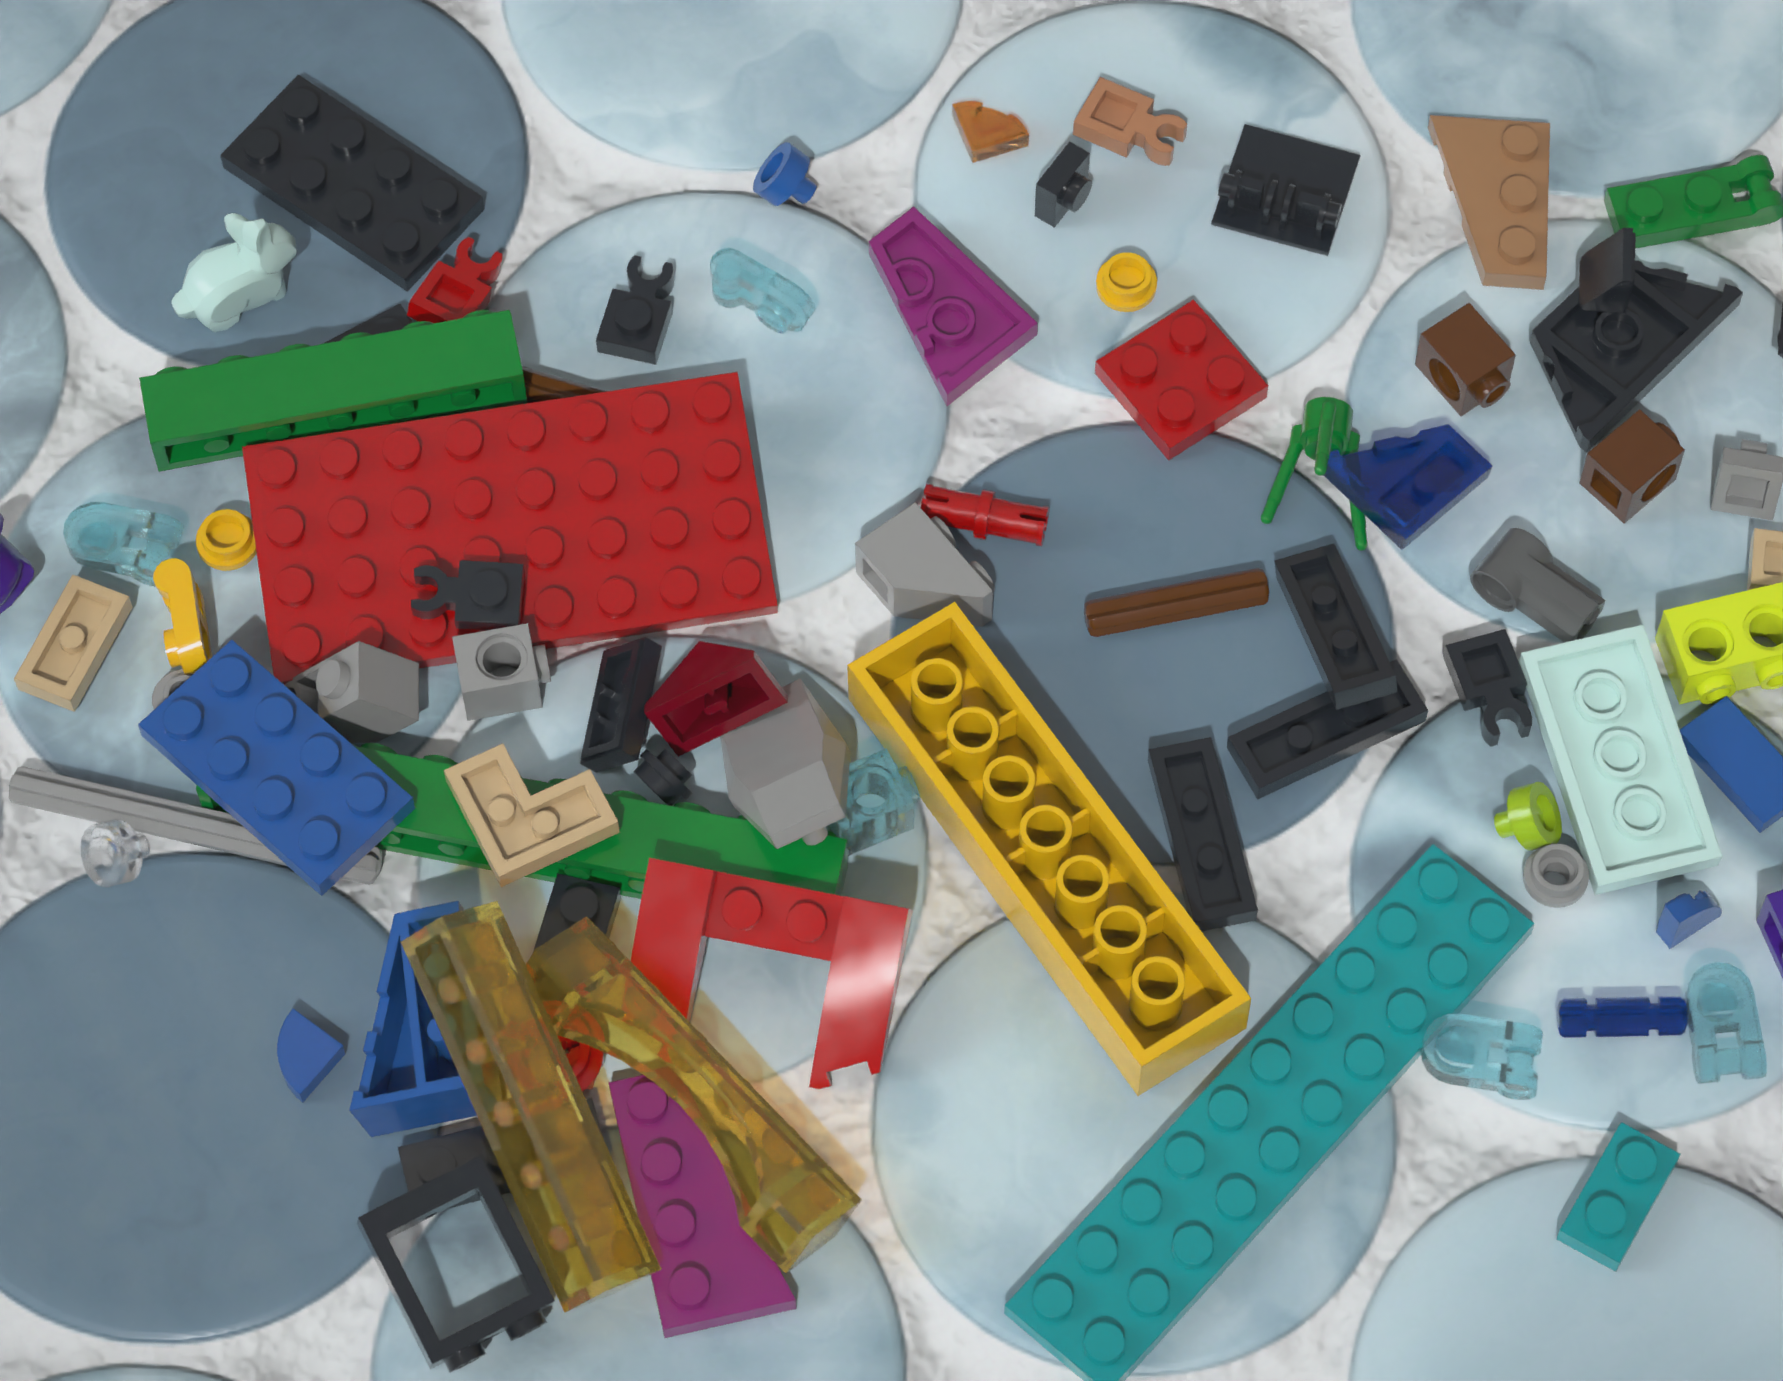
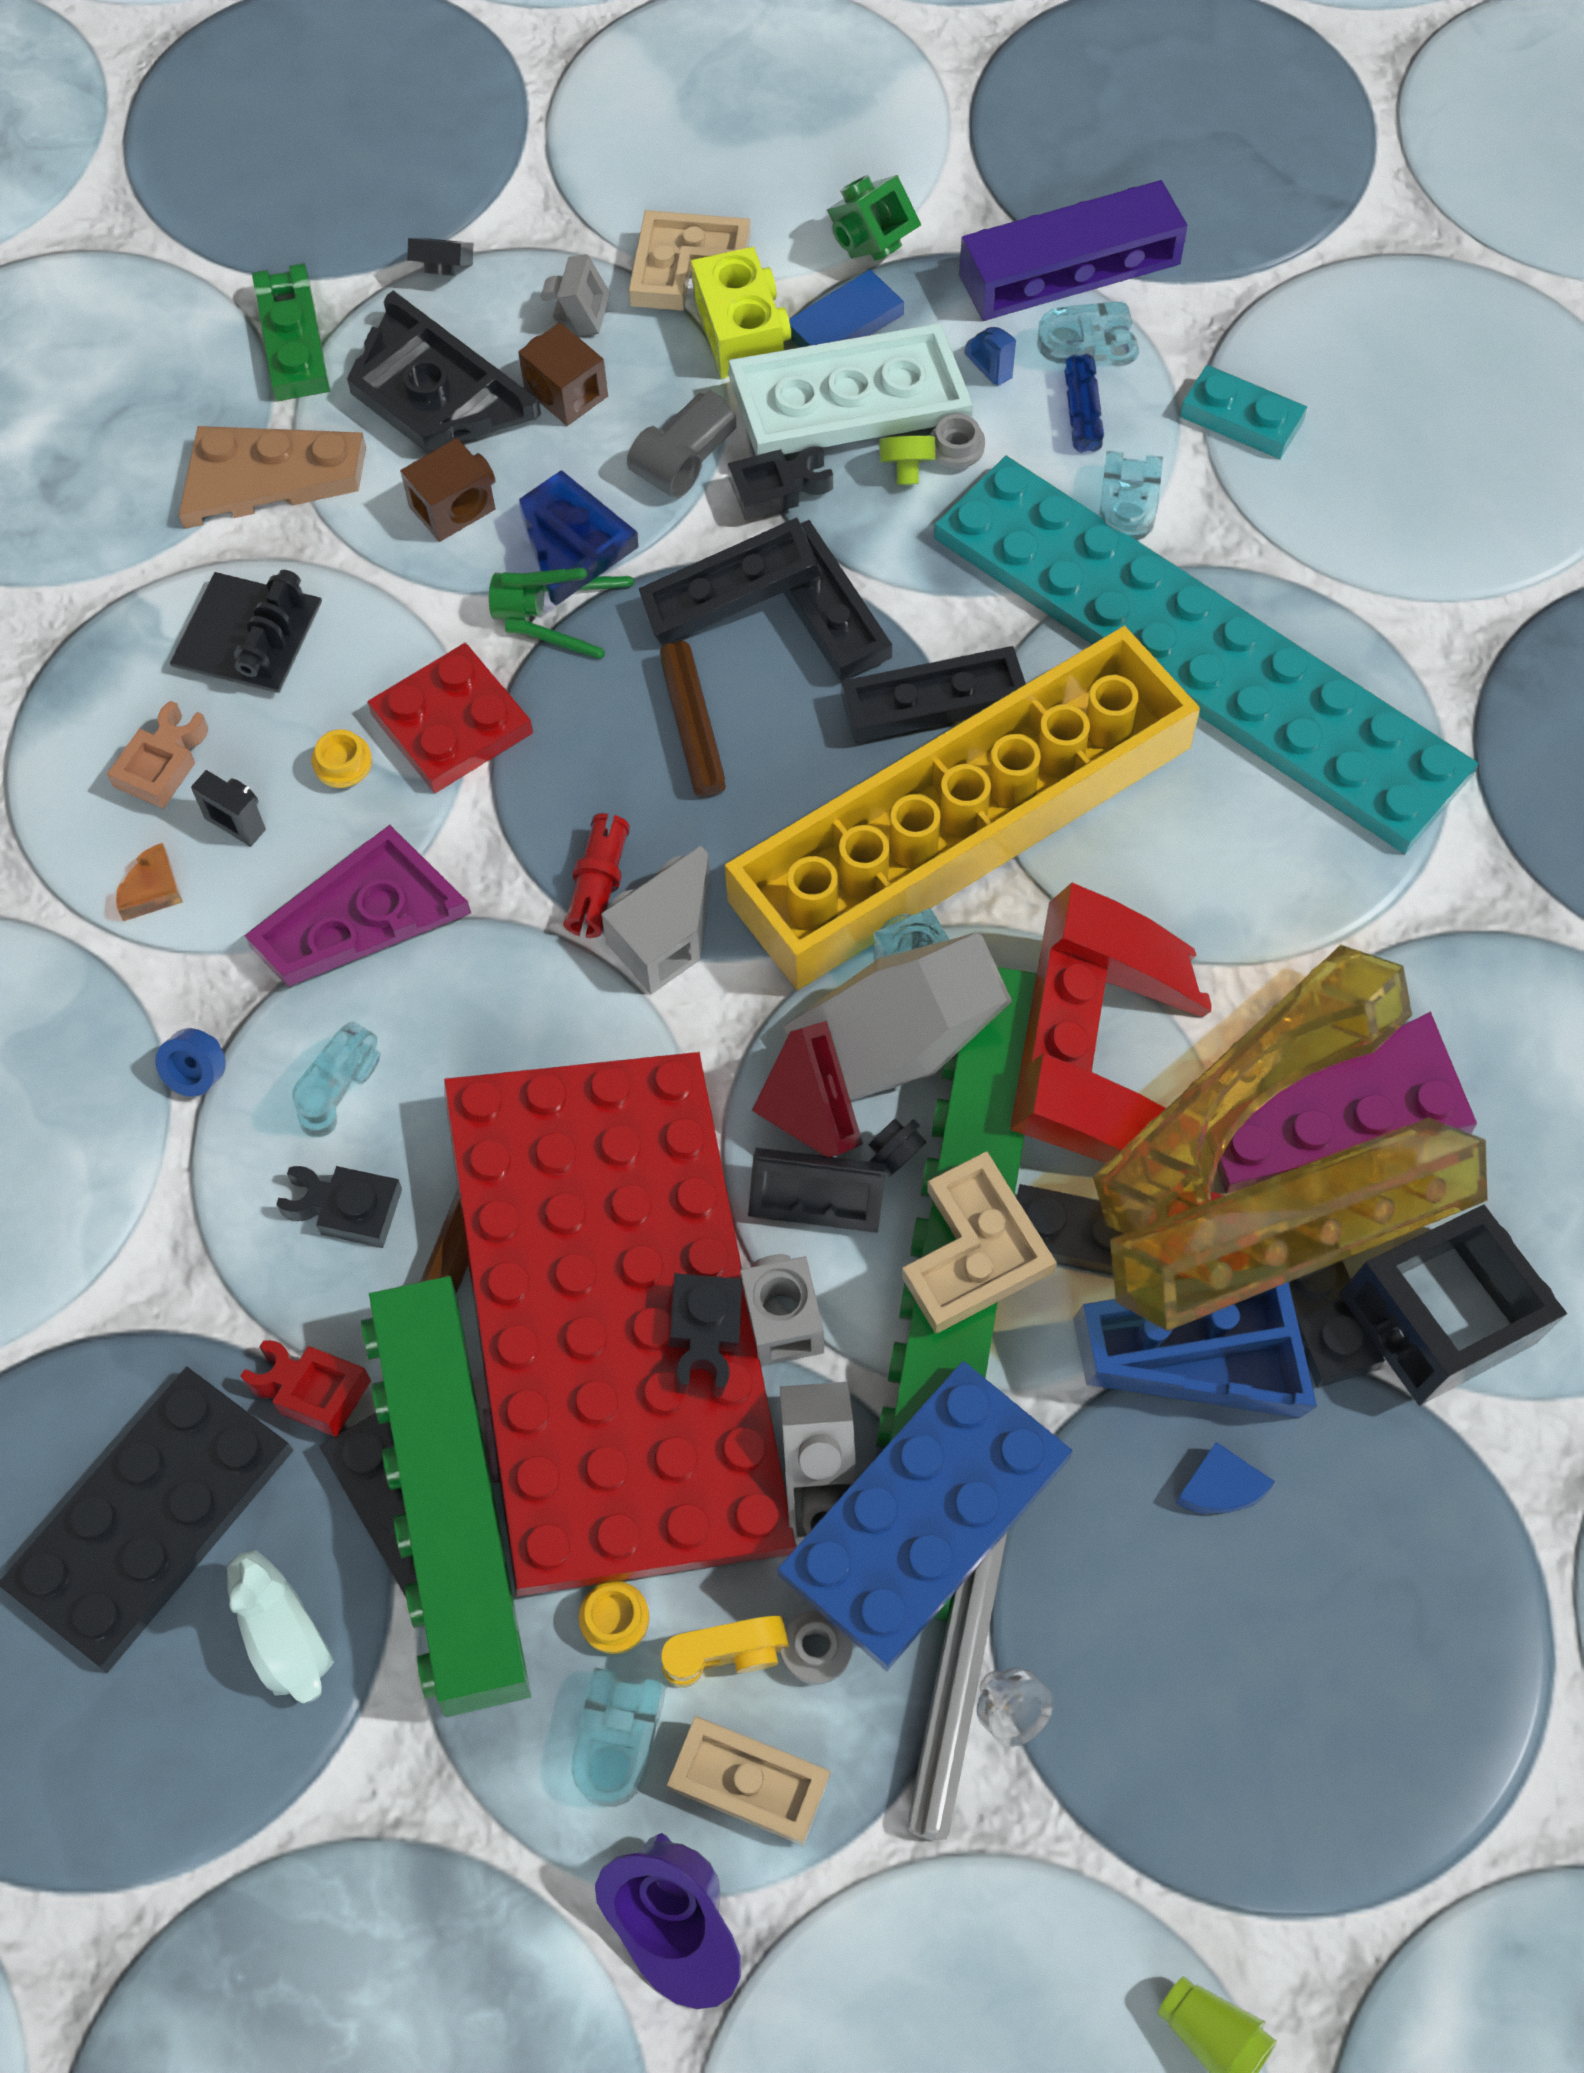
camera: 90 degrees left, 0 degrees up
(1608, 273) = (375, 367): black slope -> none

